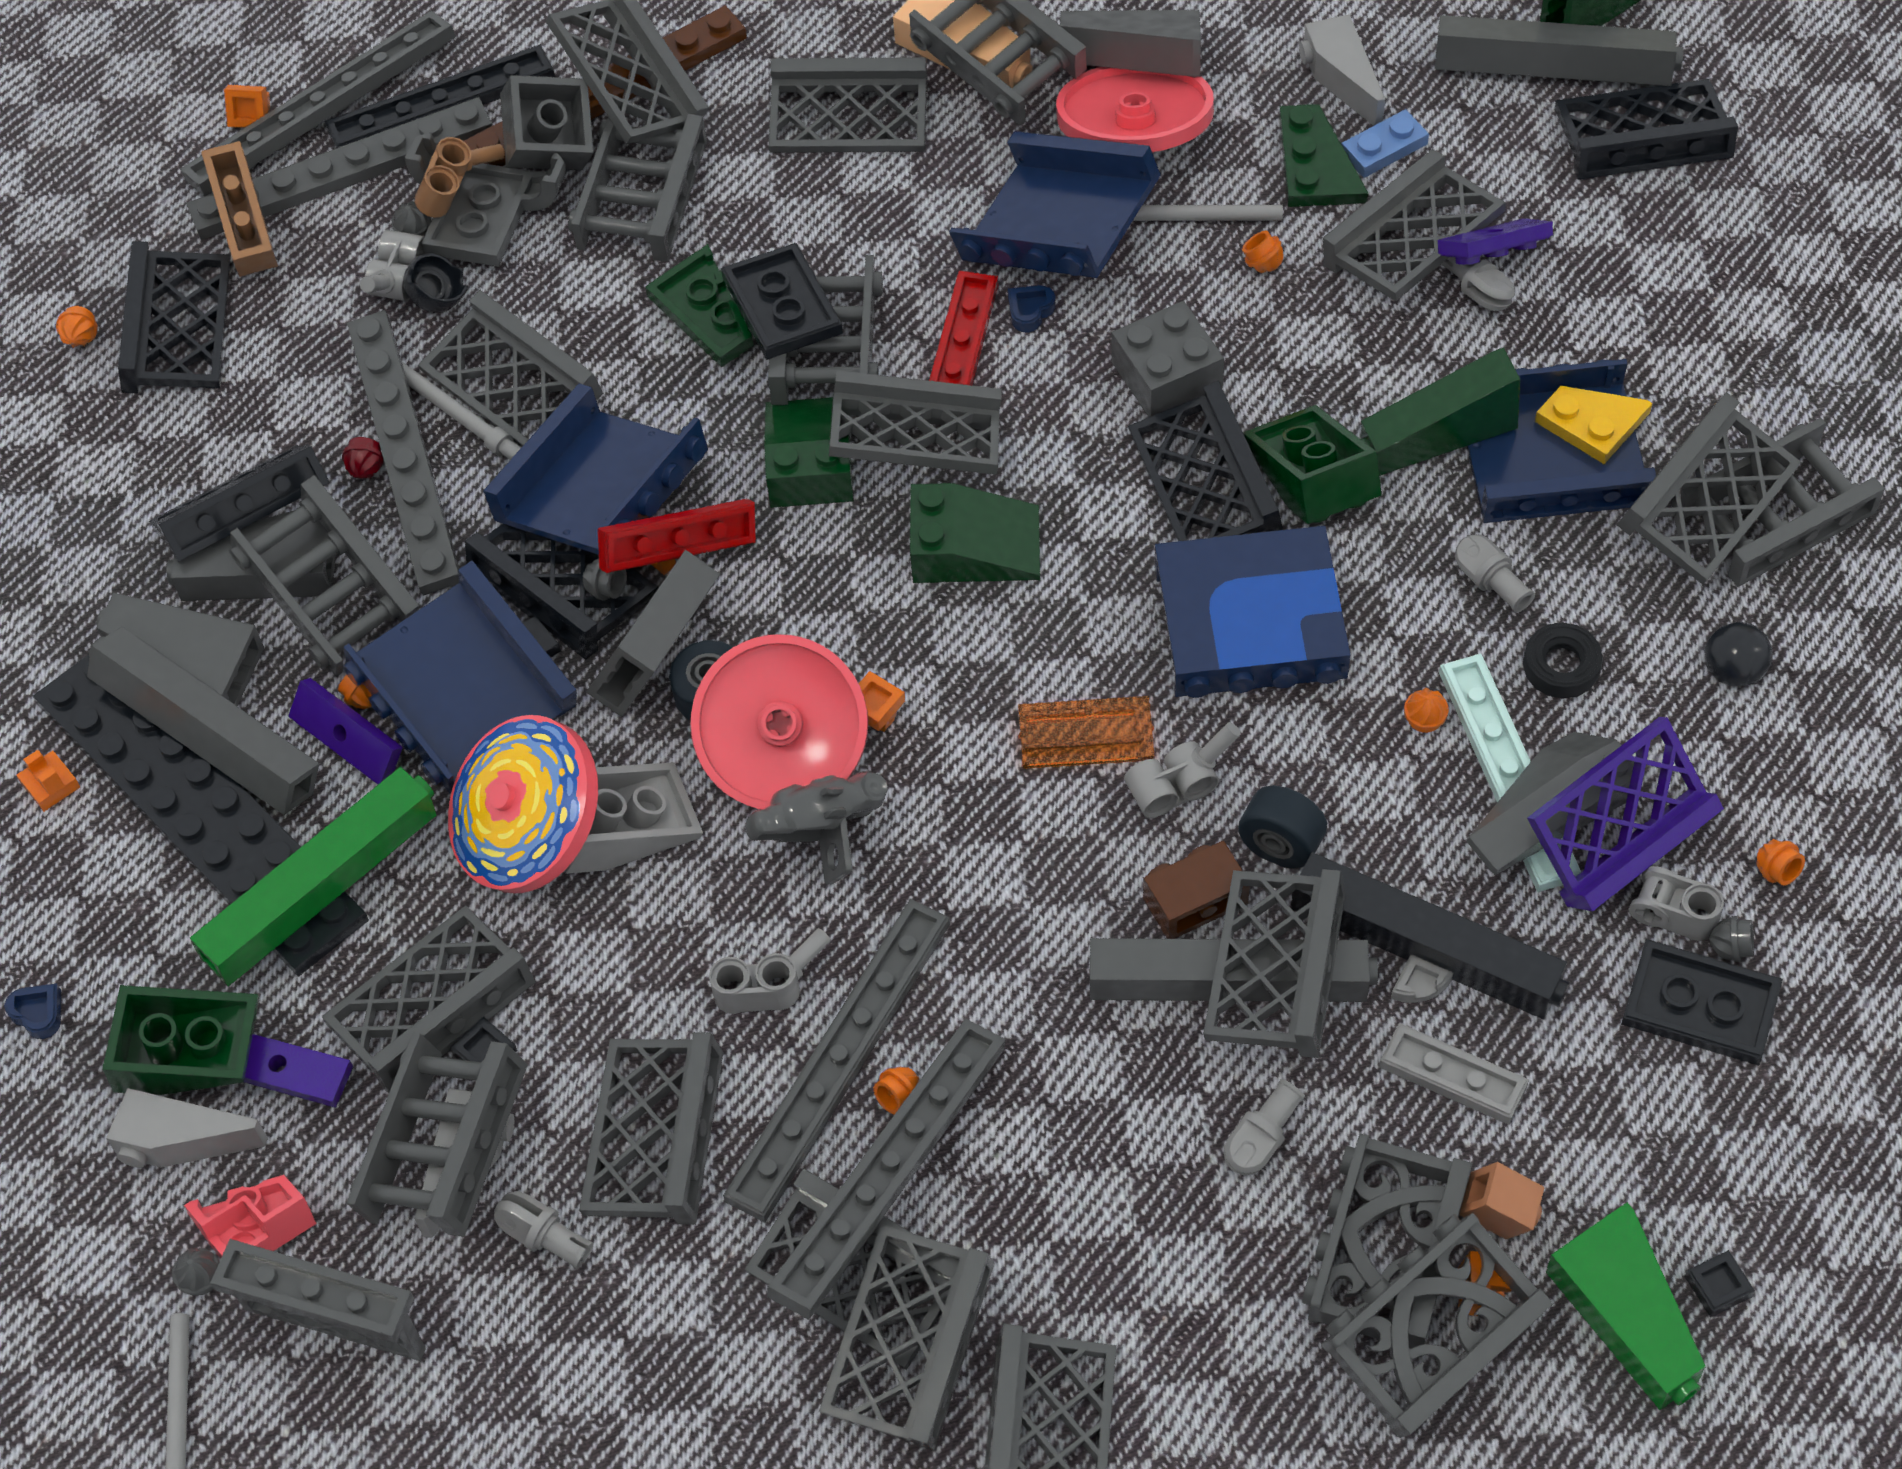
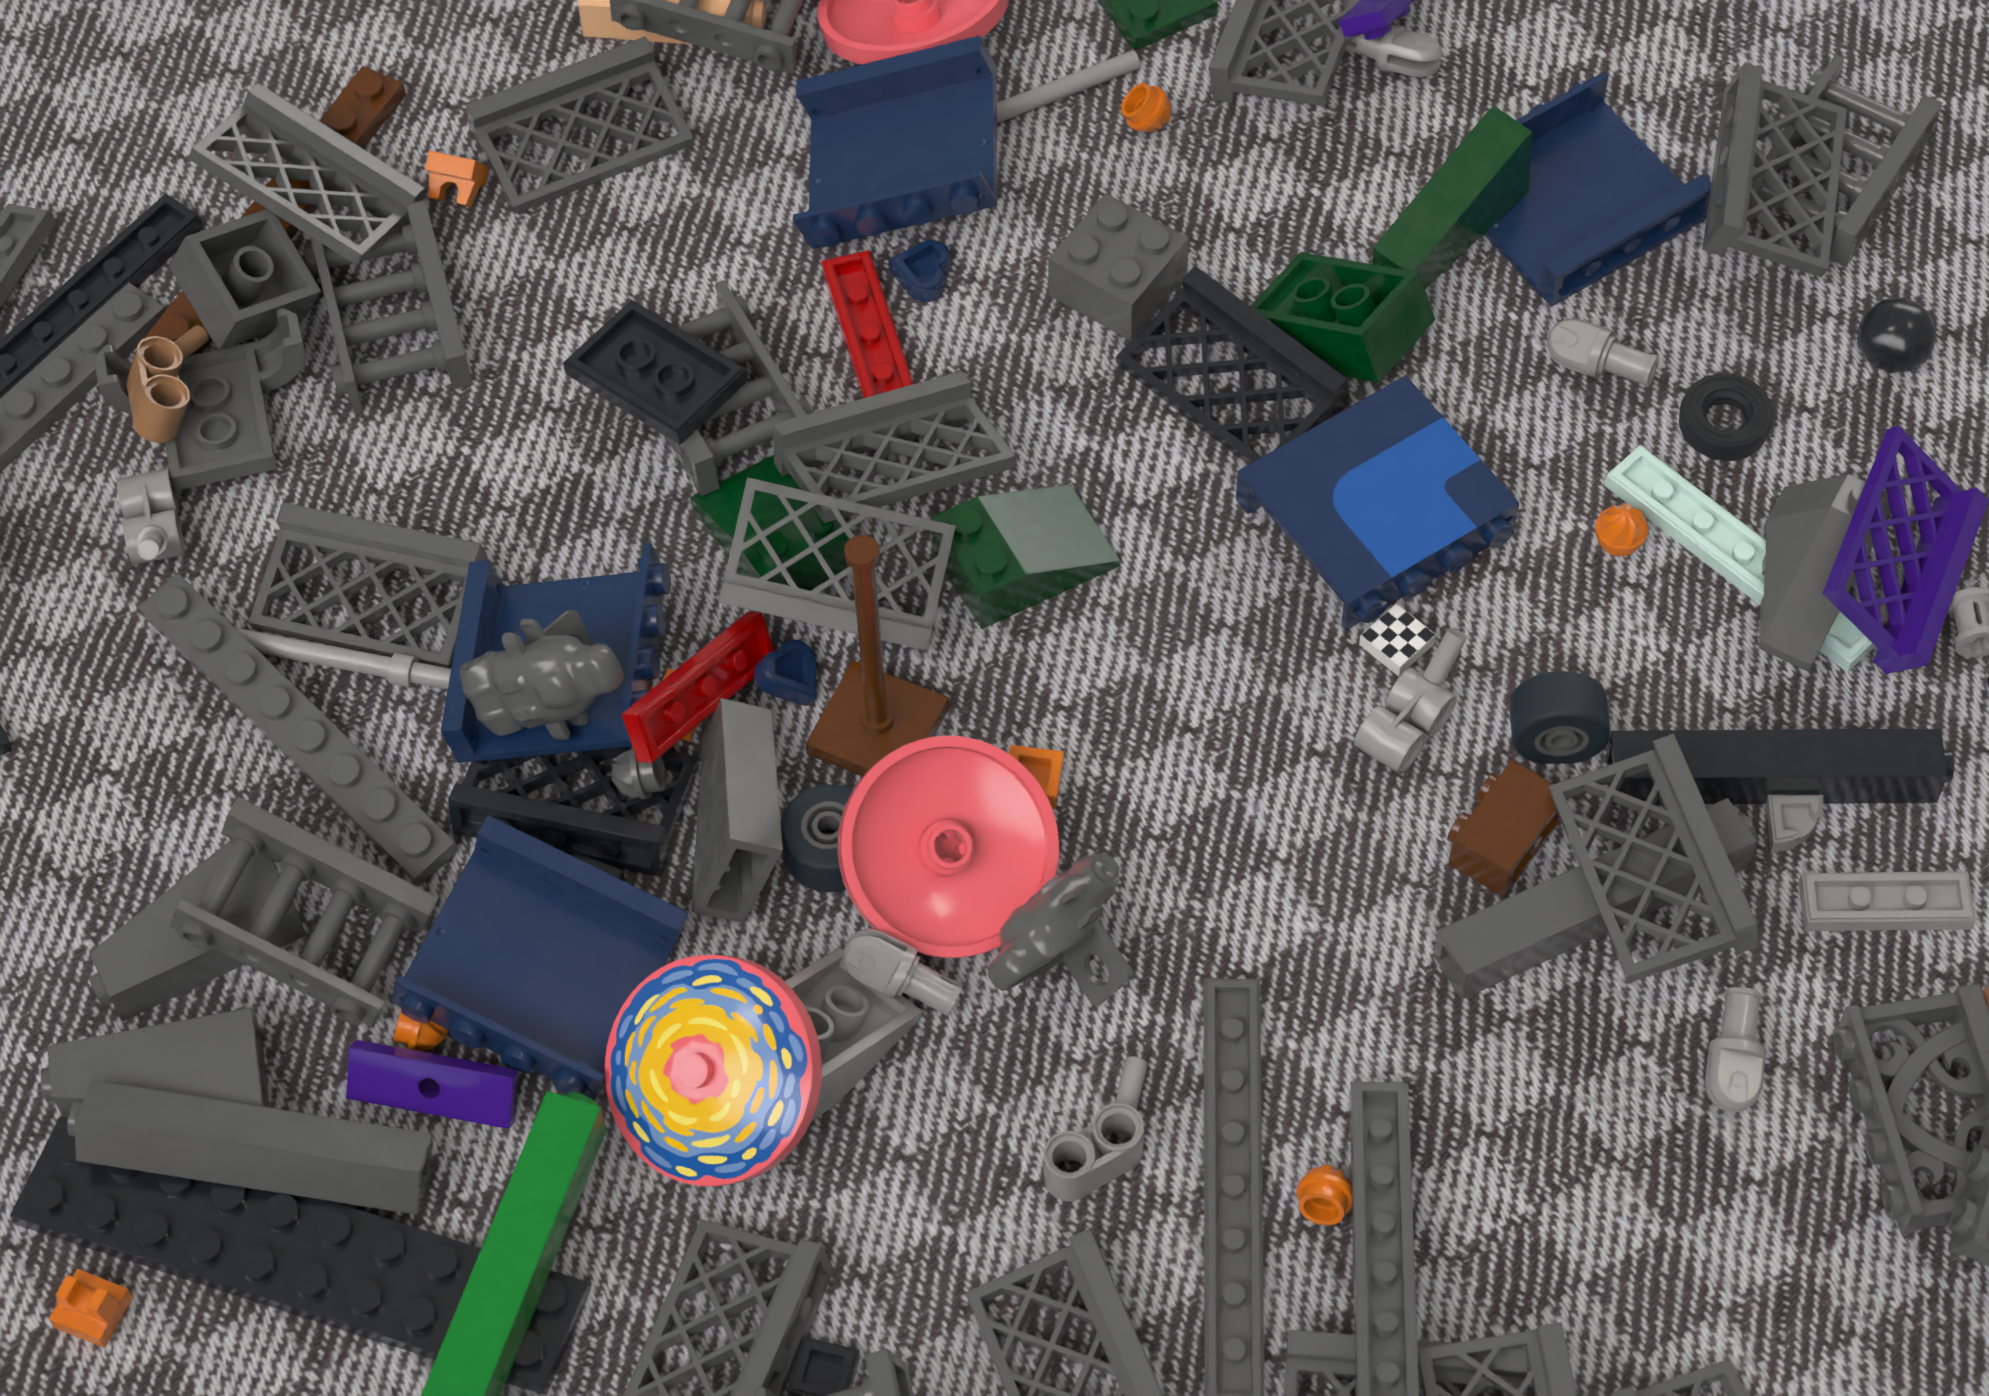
camera: 30 degrees left, 0 degrees up
(238, 501) = (136, 869): black fence -> none
(362, 457) = (250, 757): dark red plate -> none
(410, 220) = (134, 456): dark grey plate -> none
(434, 283) = (215, 518): black hair -> none
(566, 480) = (541, 679): none -> dark grey piece
(696, 793) = (895, 969): none -> light grey arm
(702, 306) = (549, 418): dark green wing -> none
(738, 103) = (450, 170): none -> orange tile
(754, 554) = (788, 673): none -> dark blue tile
(798, 601) = (871, 708): none -> reddish brown tile
(799, 520) = (823, 608): none -> dark grey fence
(1086, 732) = (1275, 711): clear orange piece -> none
(1204, 717) = (1397, 639): none -> white tile
(1592, 419) = (1599, 151): yellow wing -> none

